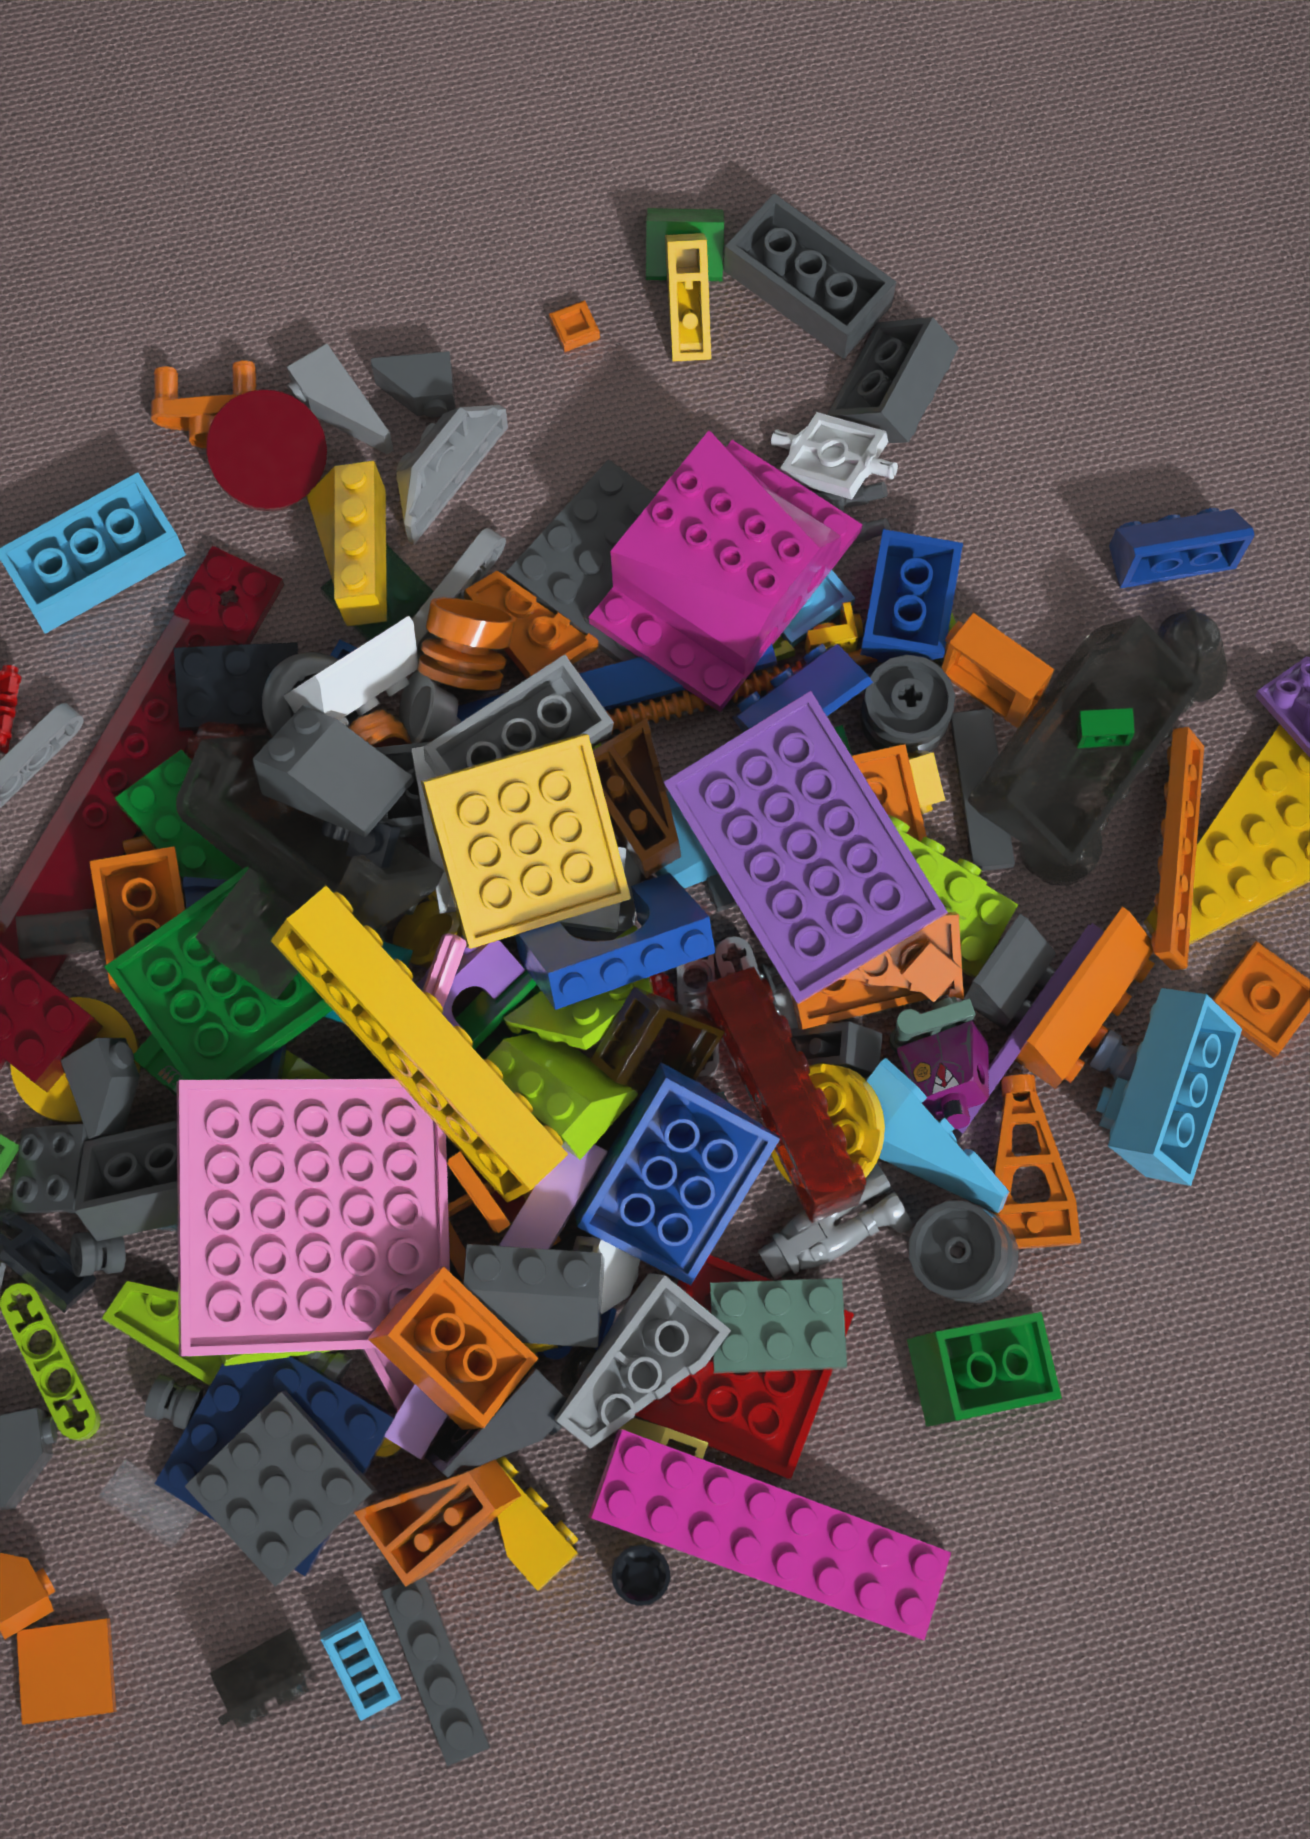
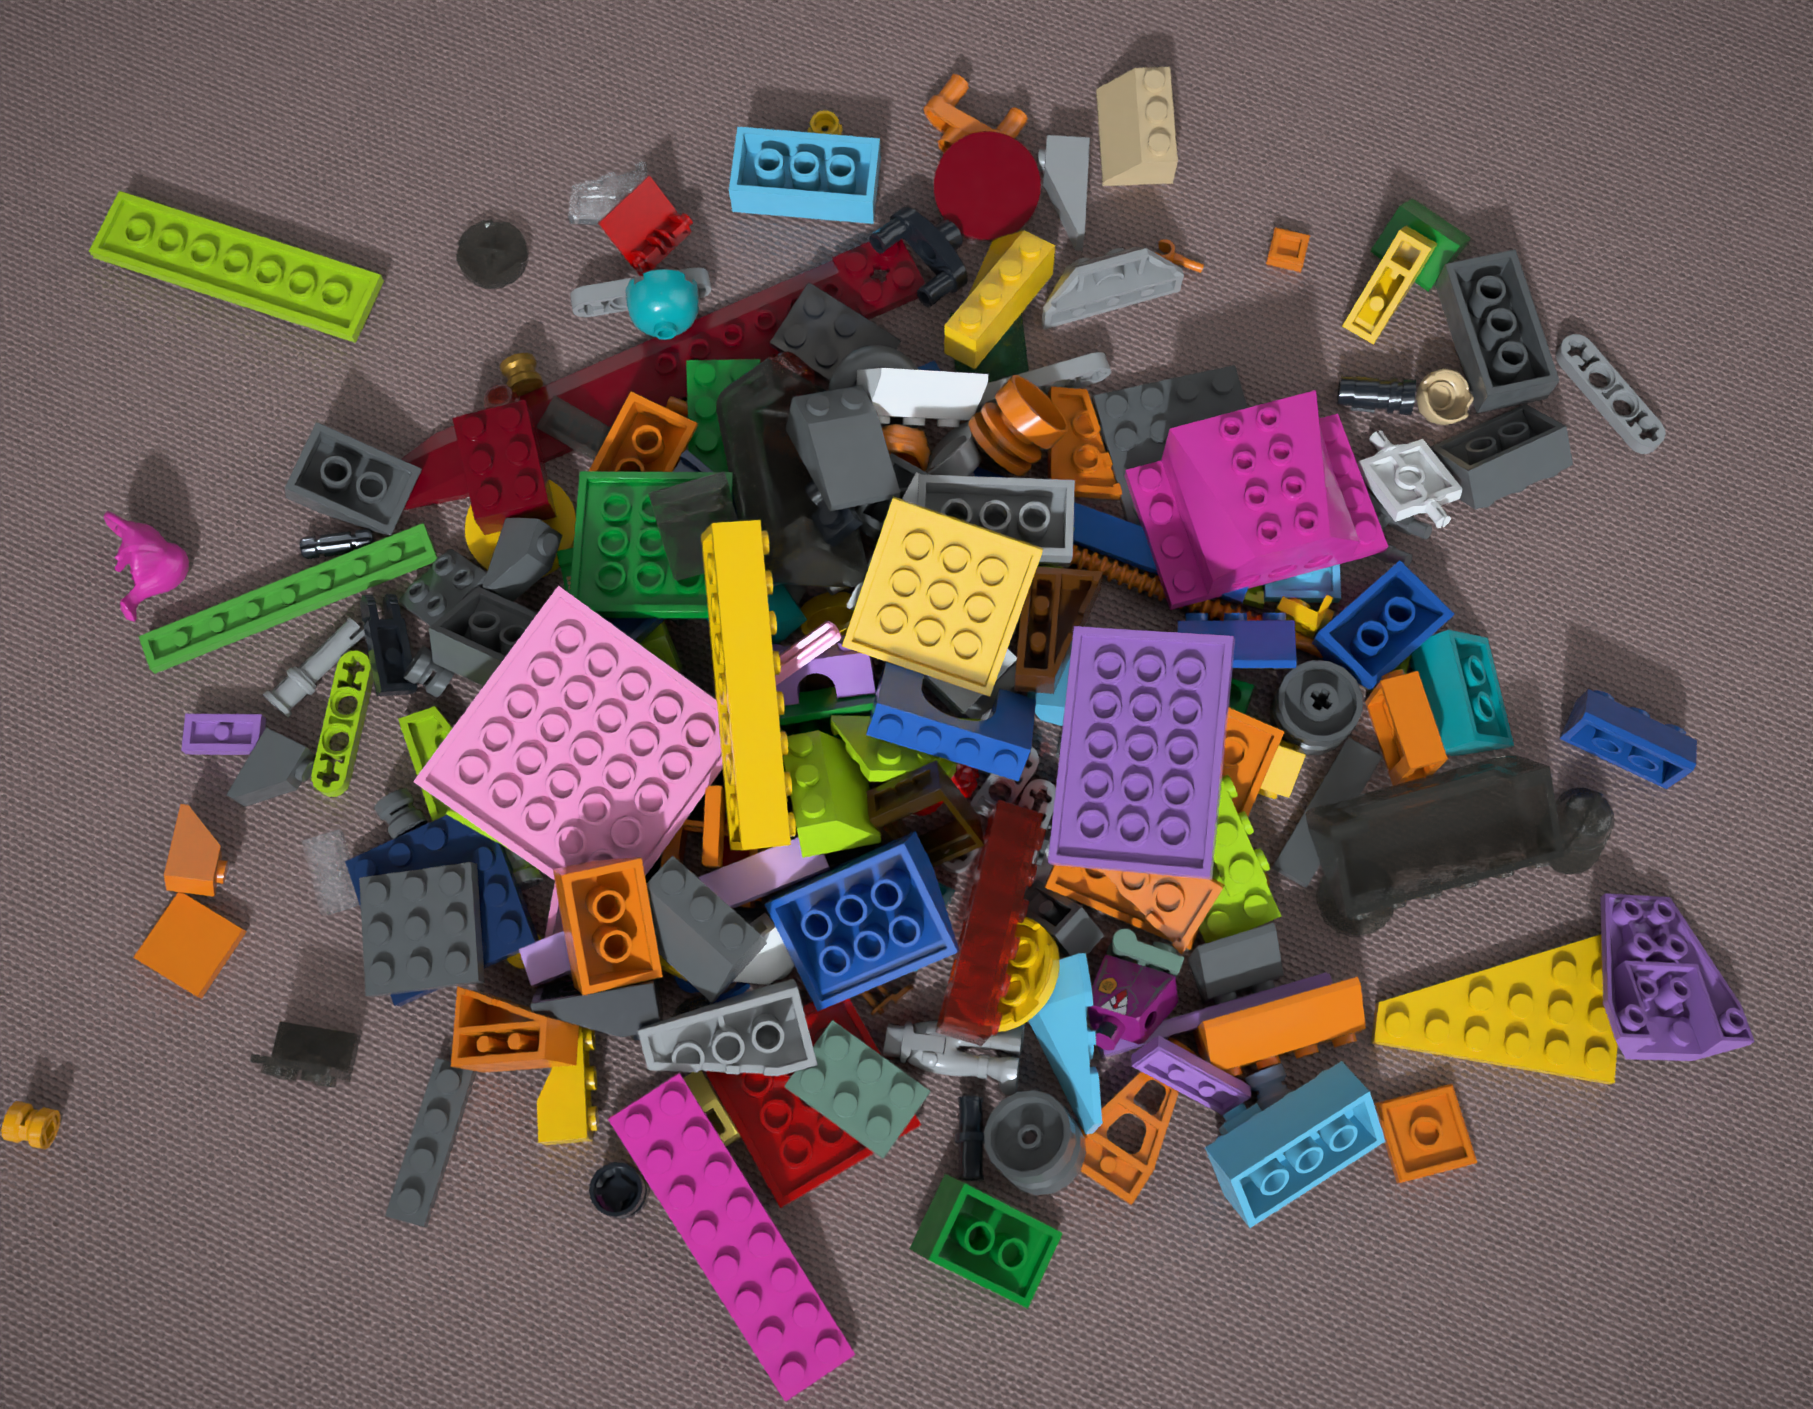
camera: 40 degrees right, 0 degrees up
(51, 761) = (663, 303): none -> teal cylinder
(67, 489) = (825, 119): none -> yellow plate
(260, 537) = (932, 244): none -> black connector
(341, 1630) = (371, 1079): medium azure slope -> none
(360, 305) = (1137, 128): none -> tan slope
(418, 381) = (1138, 212): dark grey slope -> none
(471, 394) = (1168, 247): none -> orange hand
(736, 1243) = (878, 1007): none -> reddish brown piece
(745, 401) = (1372, 393): none -> black axle
(808, 363) = (1444, 397): none -> tan hair
(903, 1292) = (970, 1138): none -> black pin
(931, 971) = (1170, 915): orange tile -> none
(942, 259) = (1615, 390): none -> light grey beam
(1016, 604) = (1463, 692): none -> teal slope
(1047, 1095) = (1190, 1075): none -> medium lavender tile
(1104, 728) = (1456, 833): green piece -> none
(1178, 859) = (1443, 968): orange plate -> none

